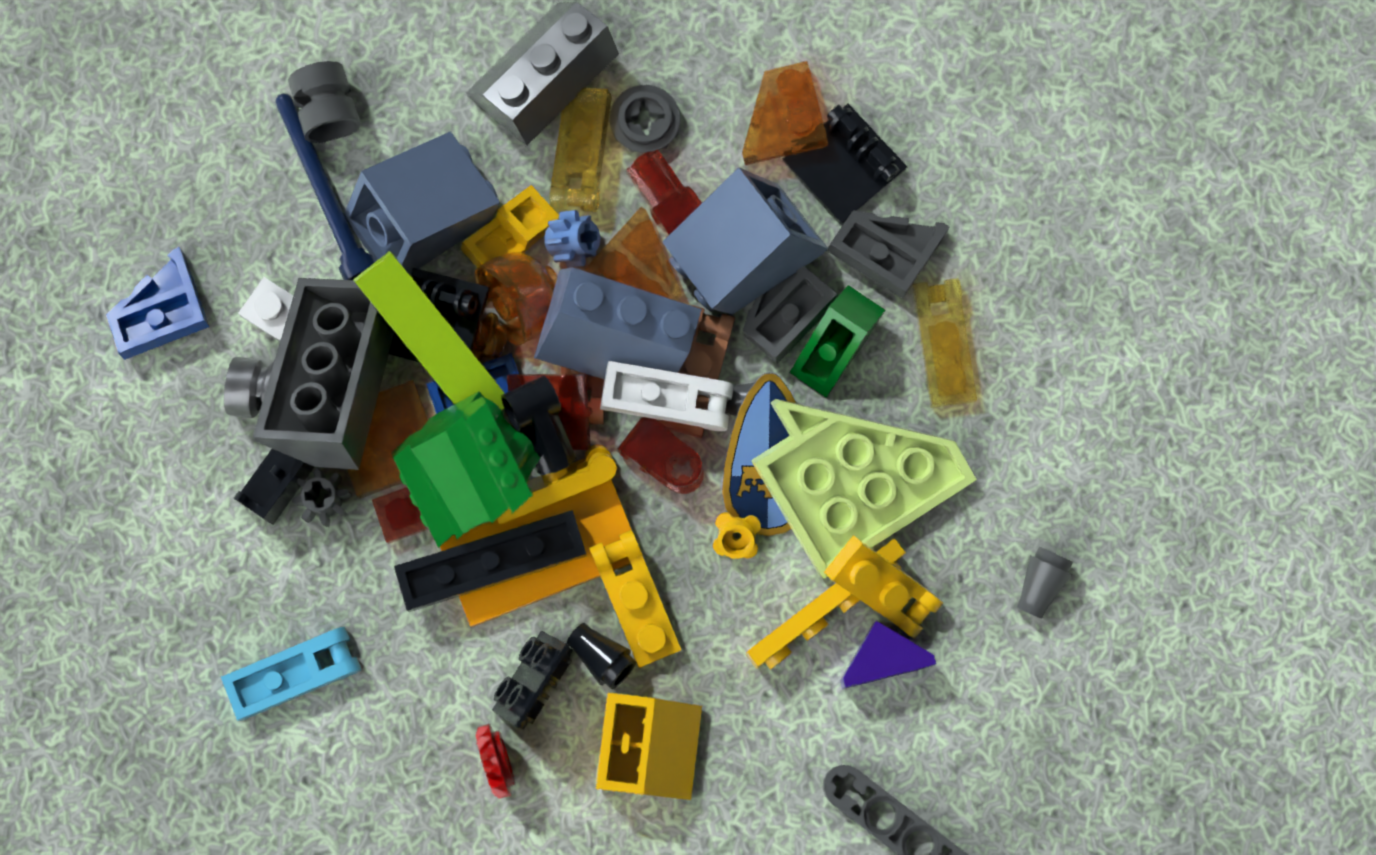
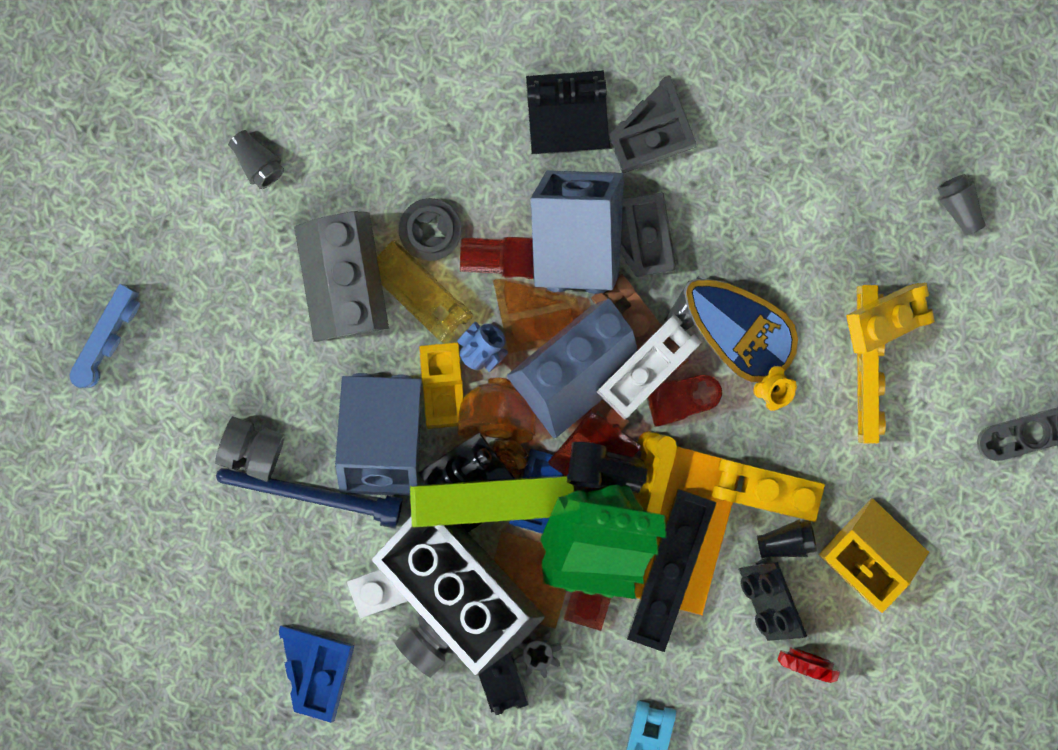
camera: 55 degrees left, 10 degrees up
(784, 116) = (502, 128): clear orange wing -> none
(837, 340) = (693, 215): green slope -> none
(855, 478) = (801, 279): yellowish green wing -> none
(884, 656) = (932, 353): dark purple slope -> none
(944, 344) = (749, 142): clear yellow plate -> none

